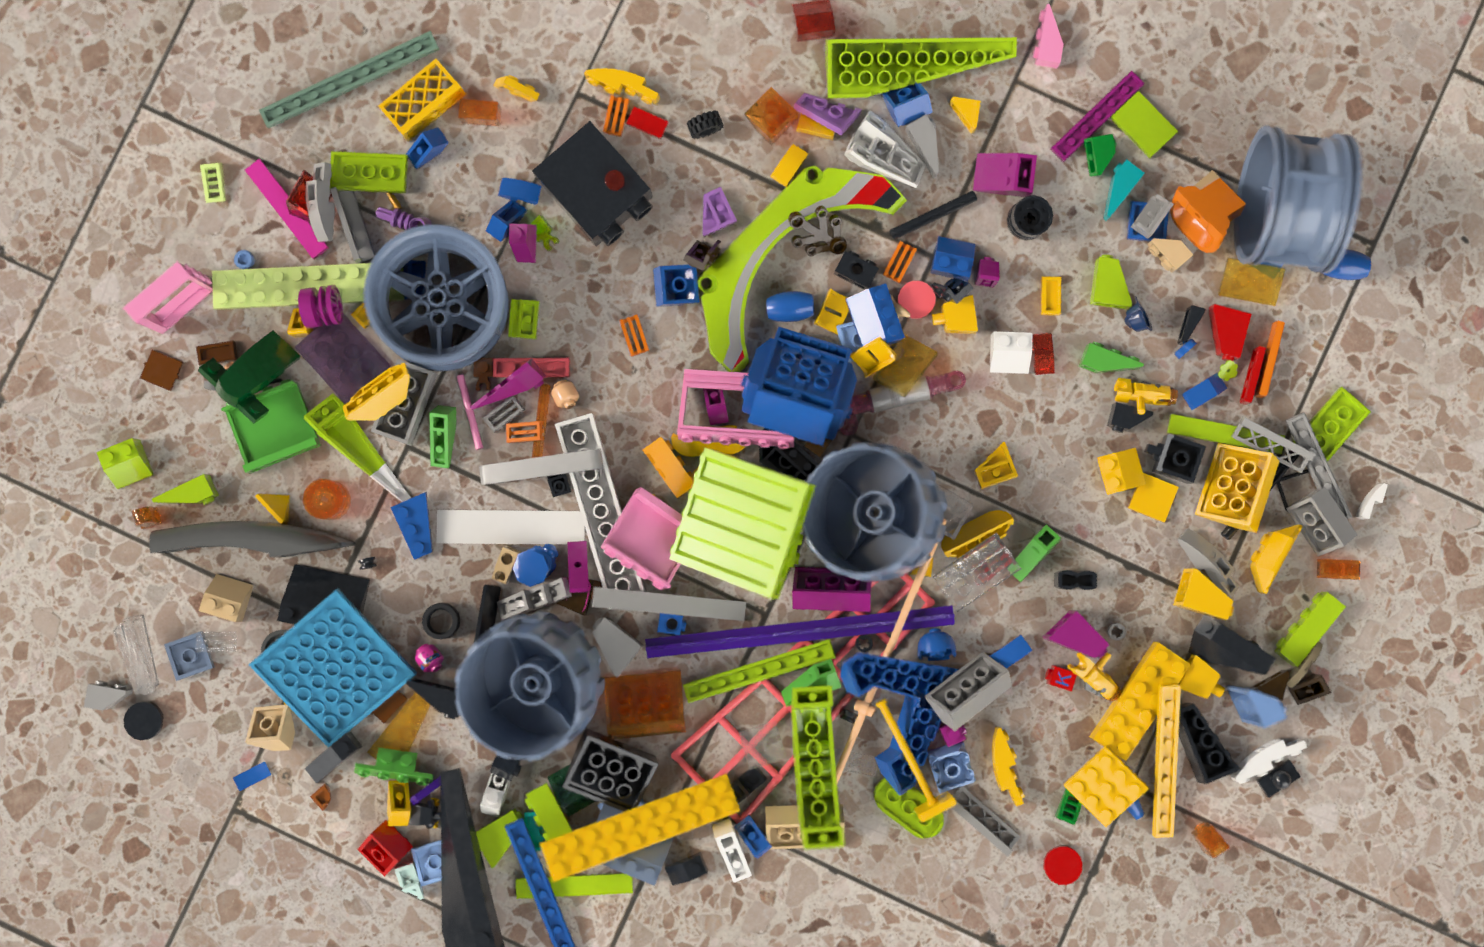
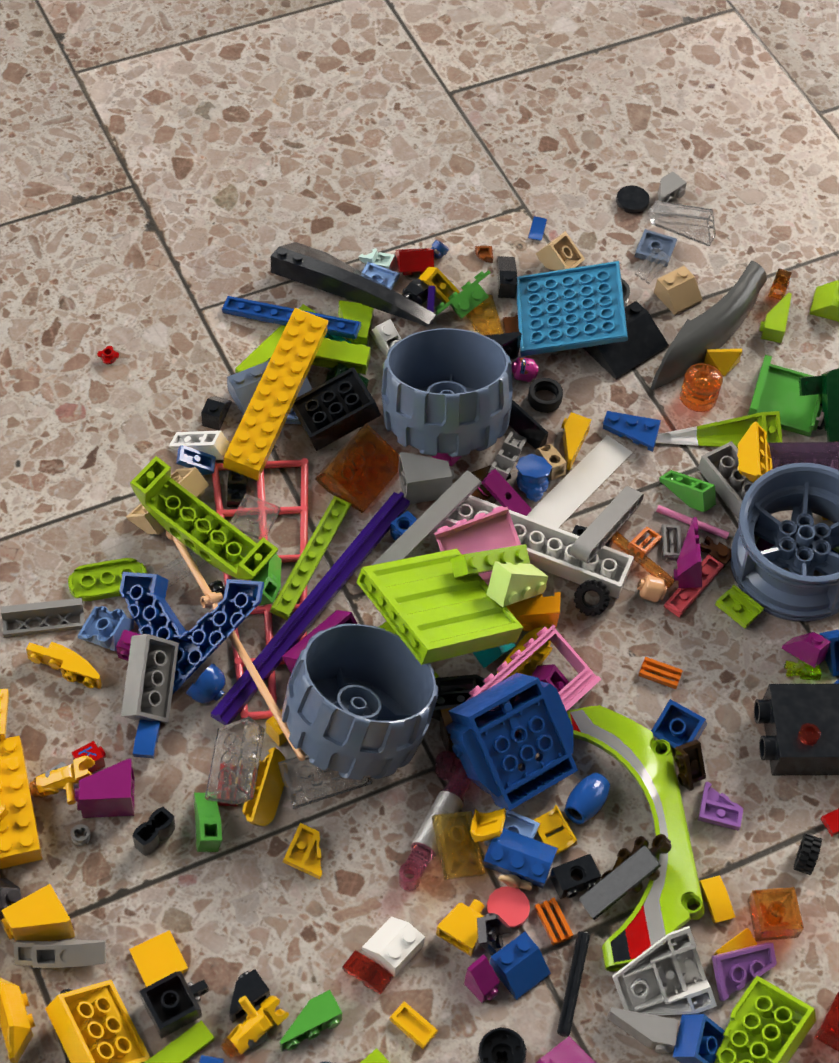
camera: 120 degrees right, 30 degrees down
(353, 838) = (439, 246): none -> blue tile
(367, 563) = (630, 382): black bush -> none
(465, 565) = (574, 434): none -> yellow slope
(608, 433) = (603, 593): none -> black tyre
(666, 519) = (484, 560): none -> lime brick
(670, 481) = (515, 583): none -> yellowish green wedge
(842, 231) = (619, 882): none -> slope
(863, 637) = (255, 642): black bush -> none
(933, 805) = (93, 582): yellow tile -> none
(1121, 471) = (207, 945): yellow slope -> none

